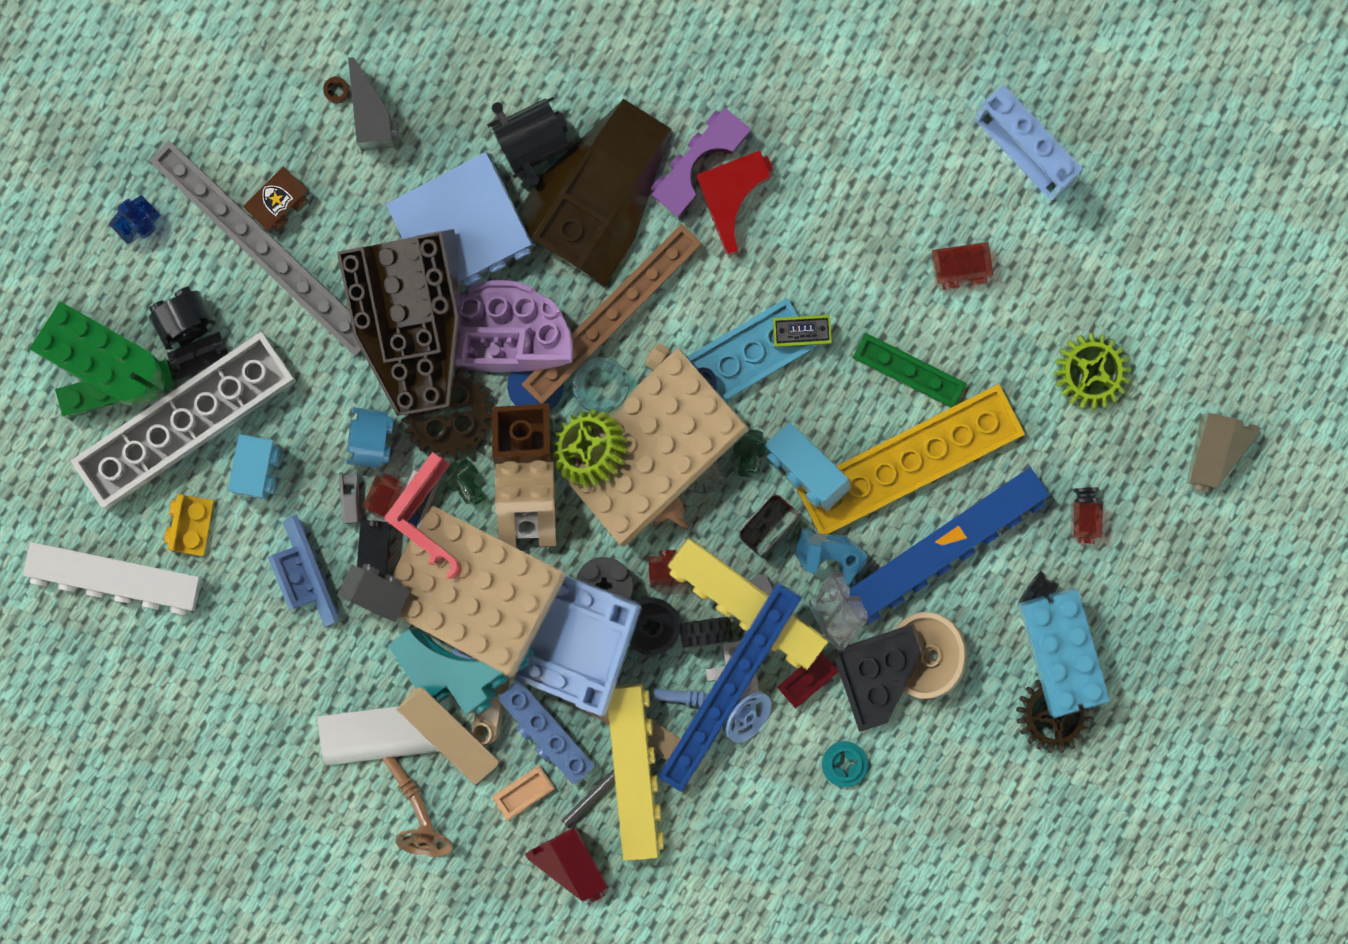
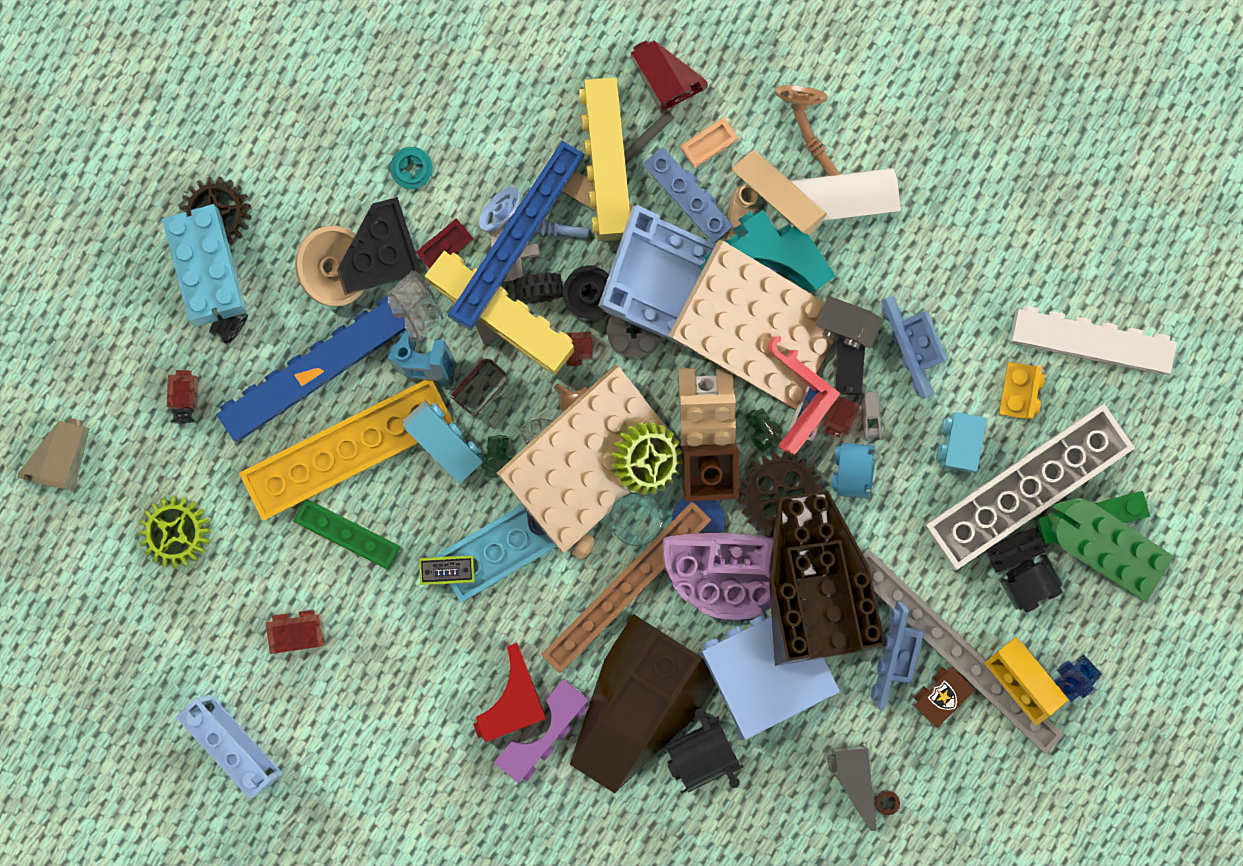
camera: 175 degrees left, 0 degrees up
(188, 215) = (1026, 681): none -> yellow brick
(323, 242) = (899, 655): none -> medium blue bracket

